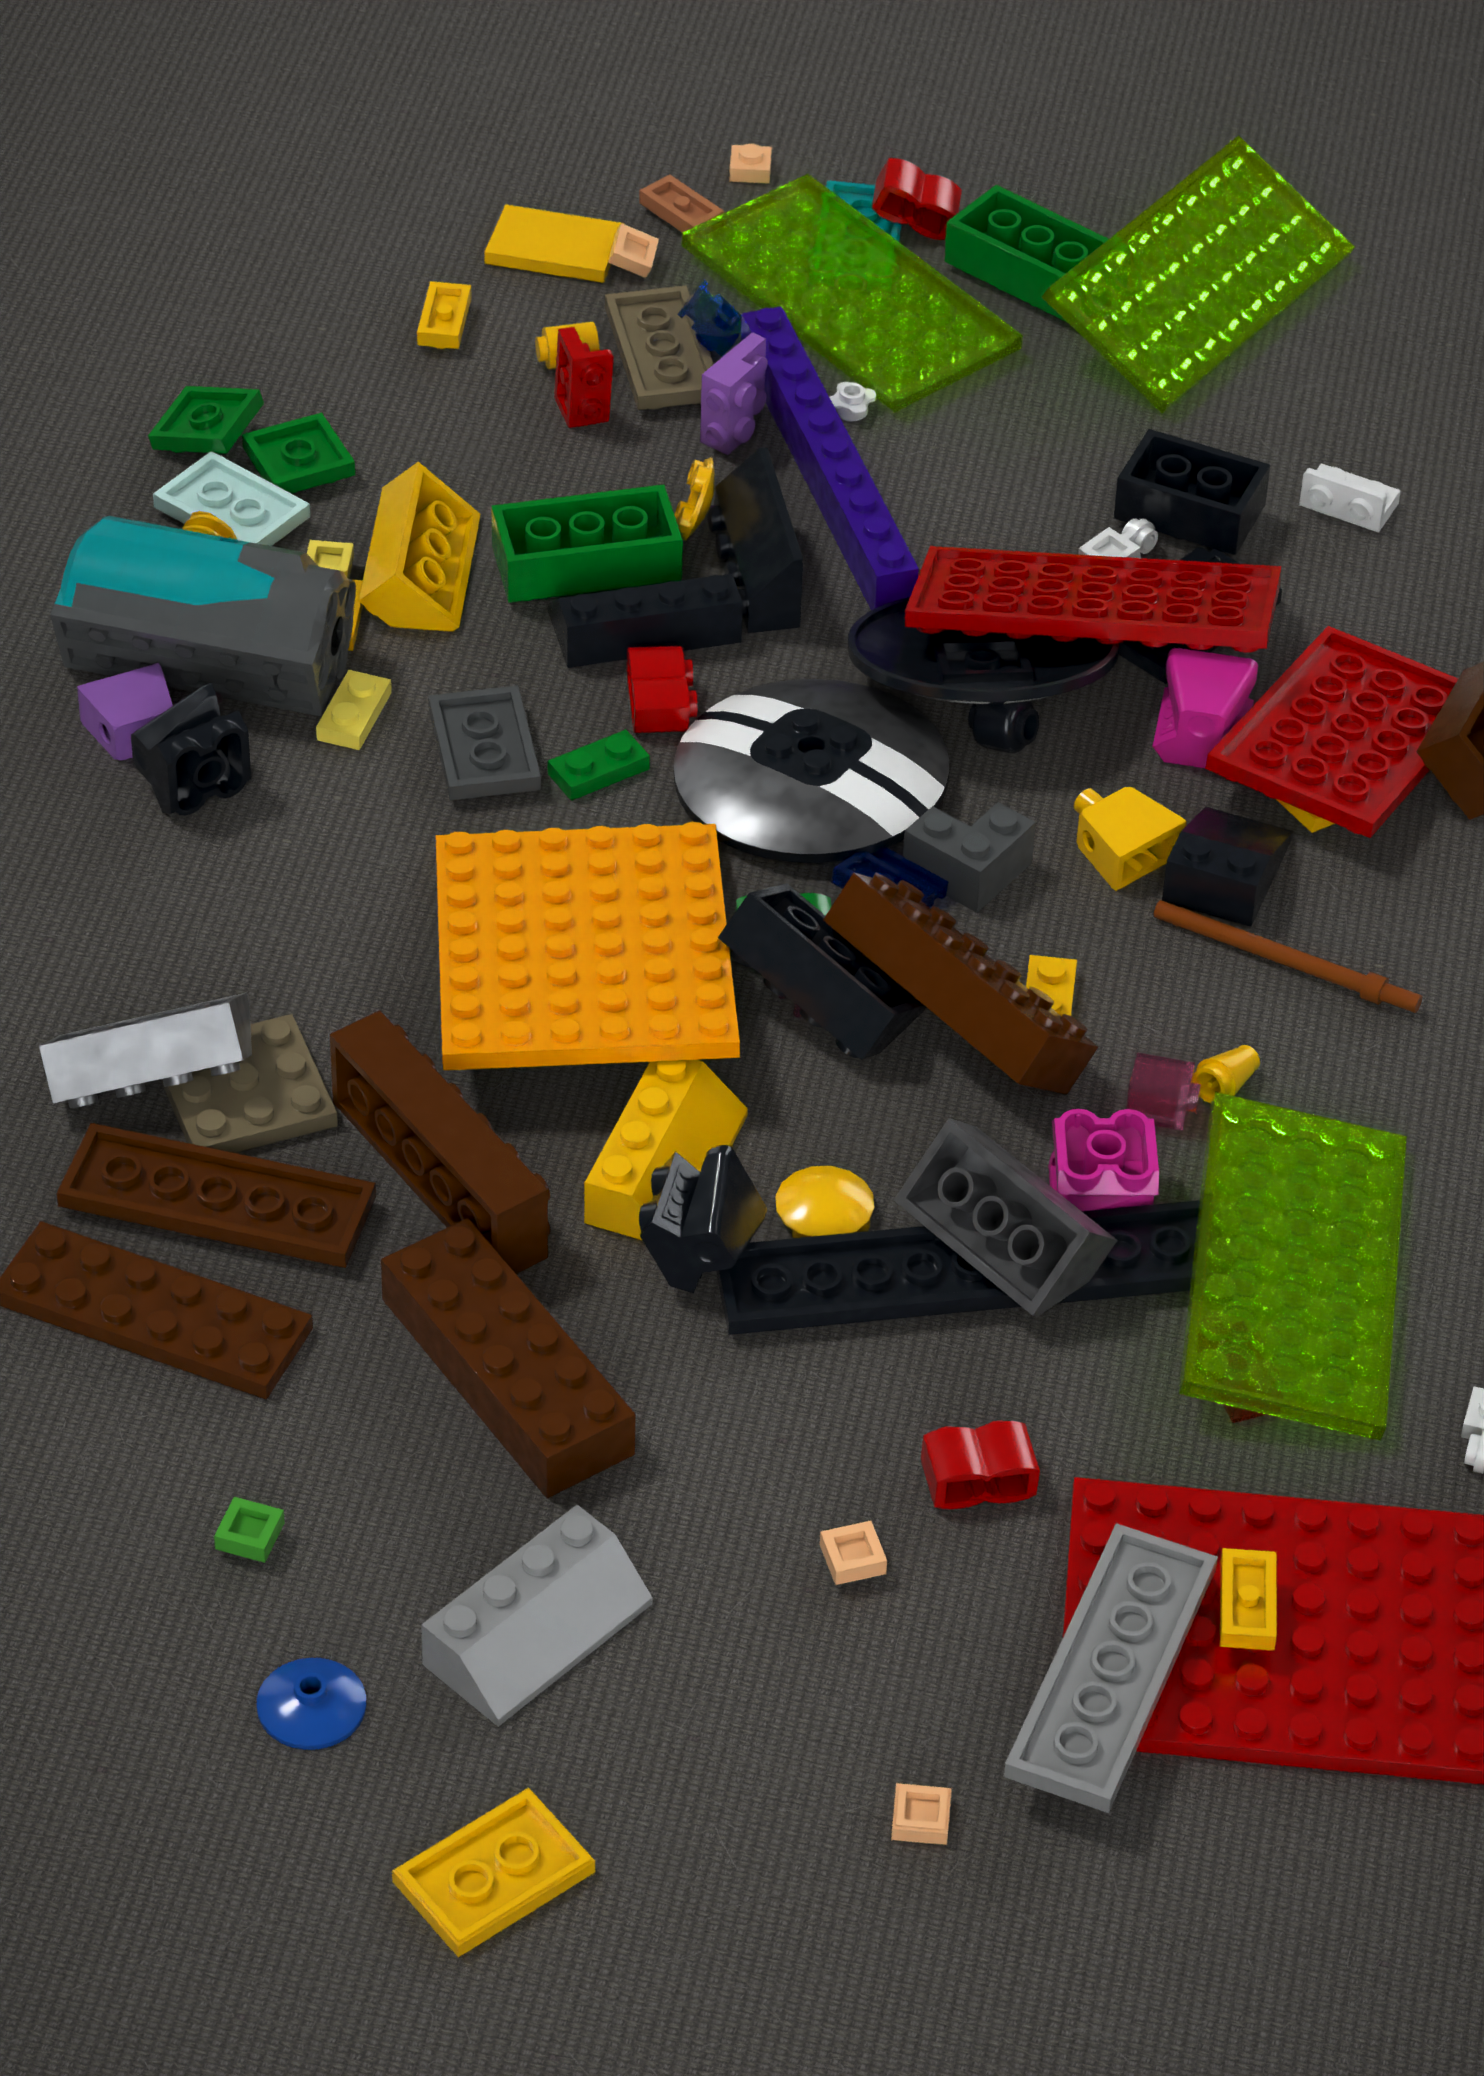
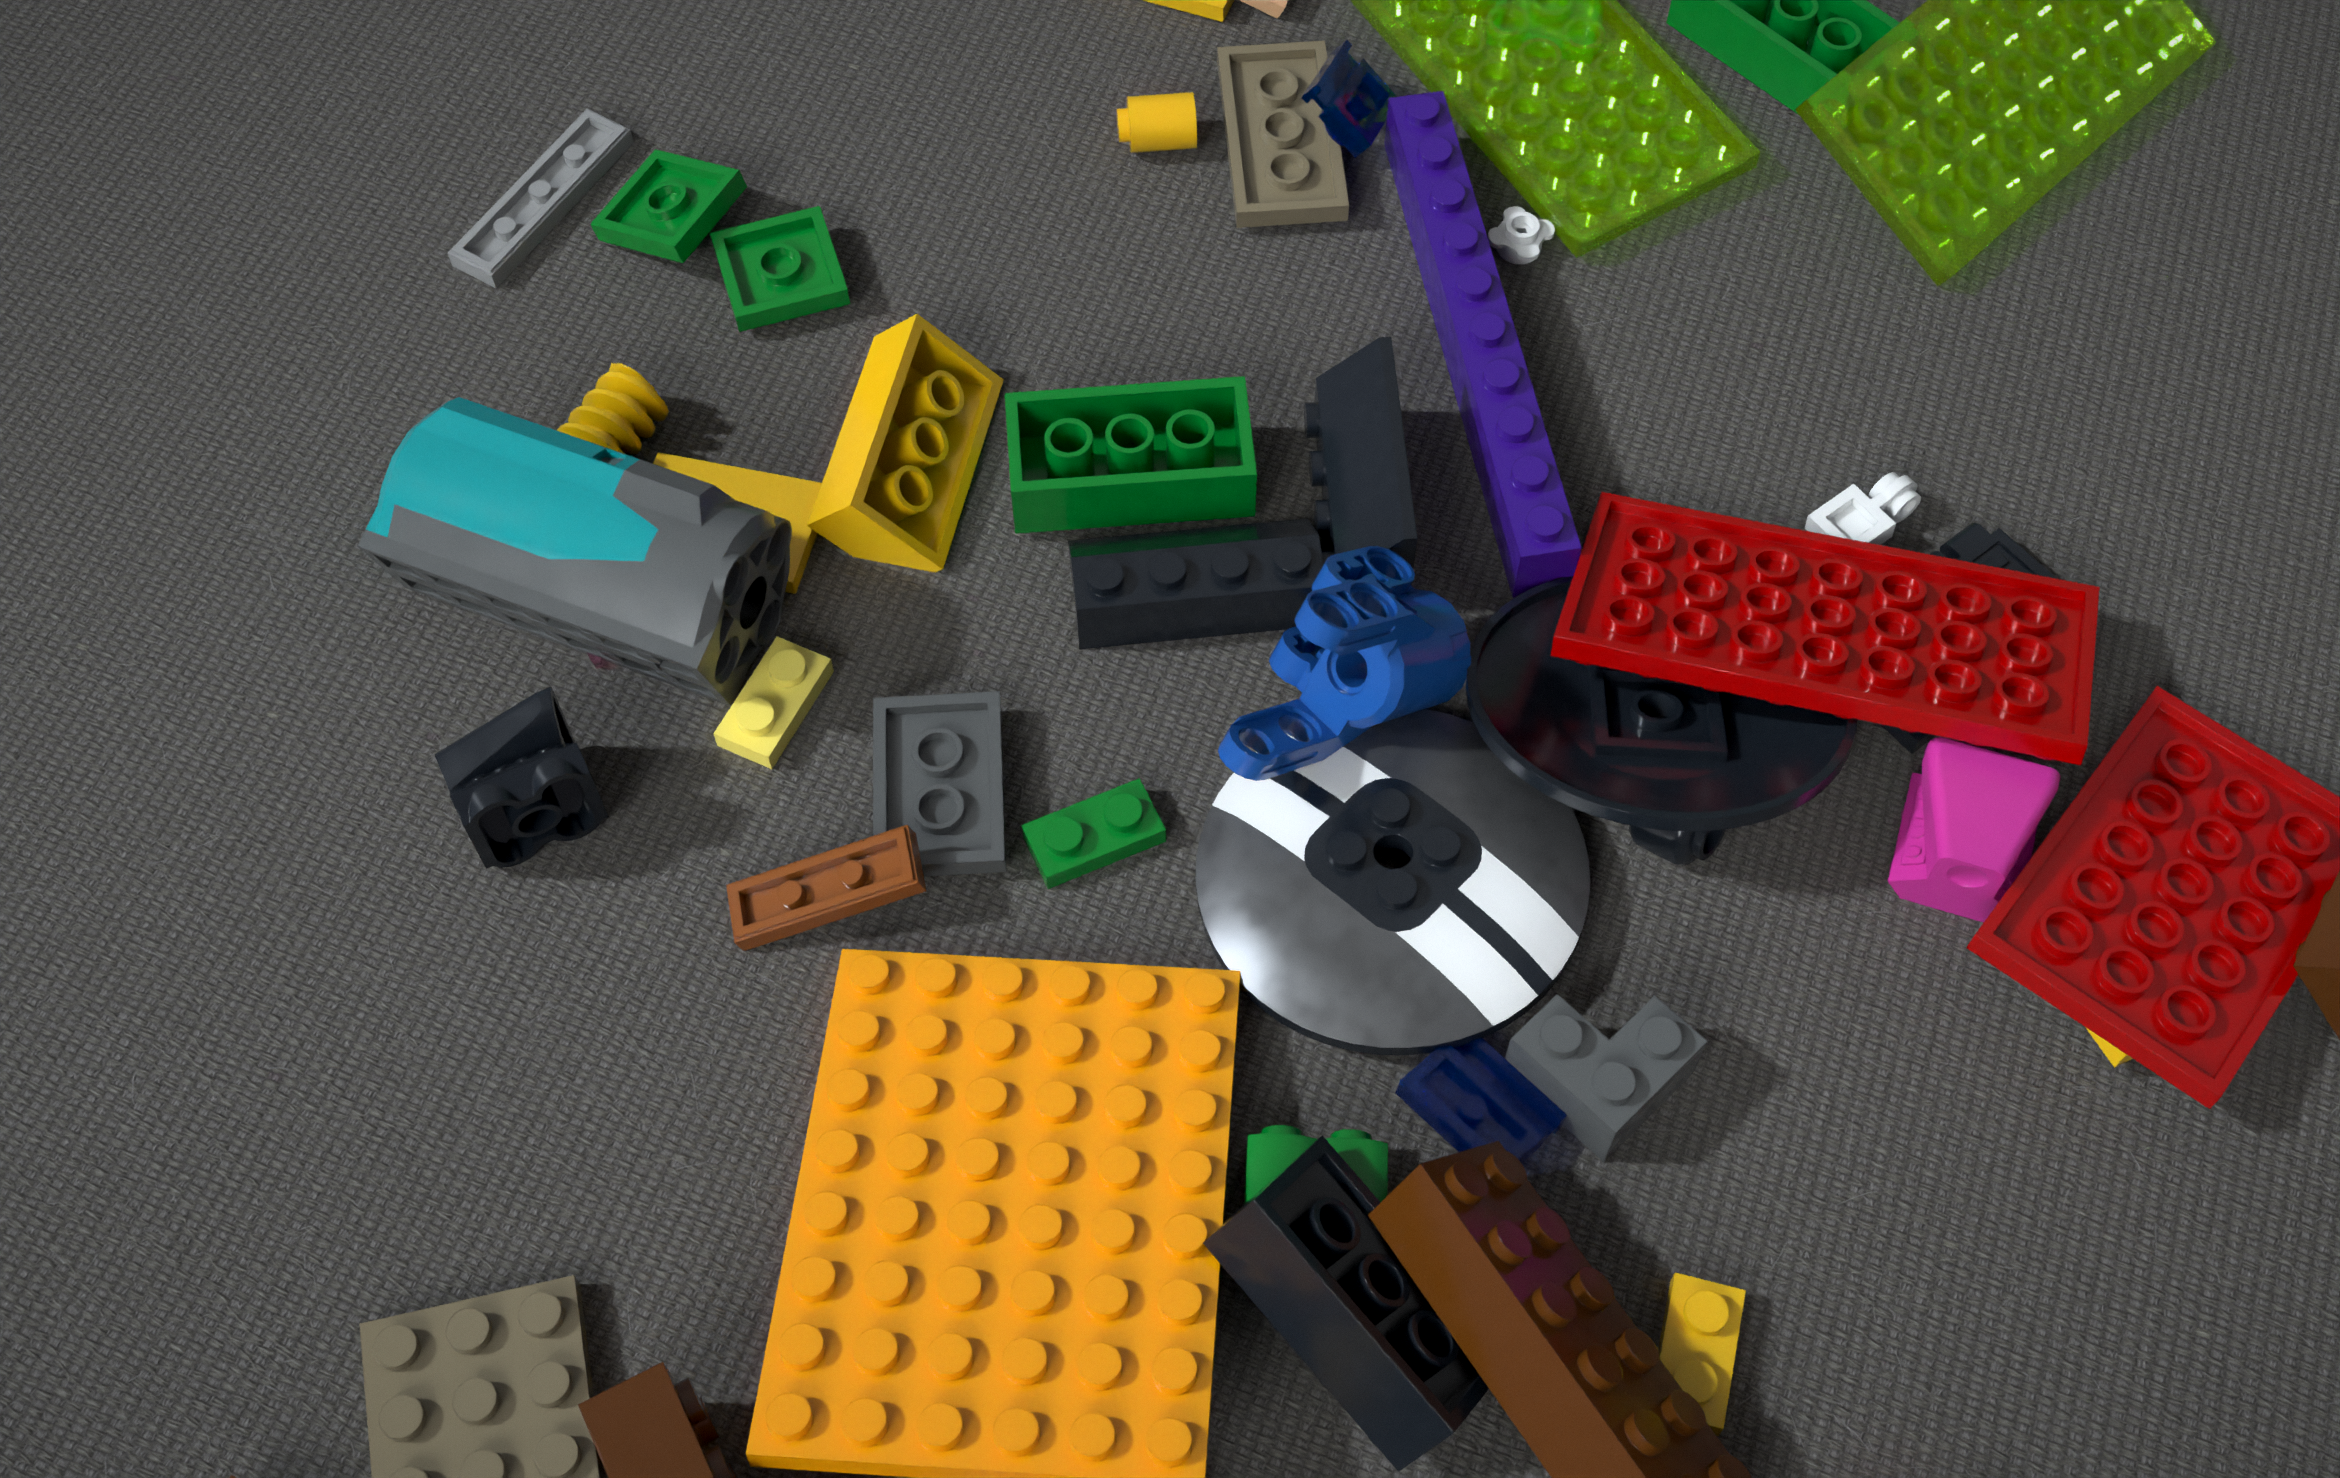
camera: 10 degrees right, 15 degrees up
(101, 425) = (540, 198): none -> light grey tile
(121, 705) = (464, 678): medium lavender torso -> none
(148, 1049) = (335, 1350): slope -> none
(241, 499) = (678, 342): light aqua plate -> none
(332, 555) = (785, 447): light yellow plate -> none
(418, 800) = (825, 888): none -> dark orange tile
(444, 315) = (1007, 61): yellow plate -> none
(582, 380) = (1164, 187): red bracket -> none
(659, 689) = (1194, 710): red brick -> none
(702, 484) = (1284, 408): yellow dish -> none
(733, 394) = (1360, 225): medium lavender plate -> none
(809, 644) = (1359, 657): none -> blue piece
(1125, 834) = (1837, 1049): yellow torso -> none
(1192, 491) = (1975, 435): black brick -> none
(1224, 865) = (1986, 1115): black slope -> none
(1348, 497) = (2191, 451): white bracket -> none
(1371, 987) = (2193, 1390): dark orange bar -> none

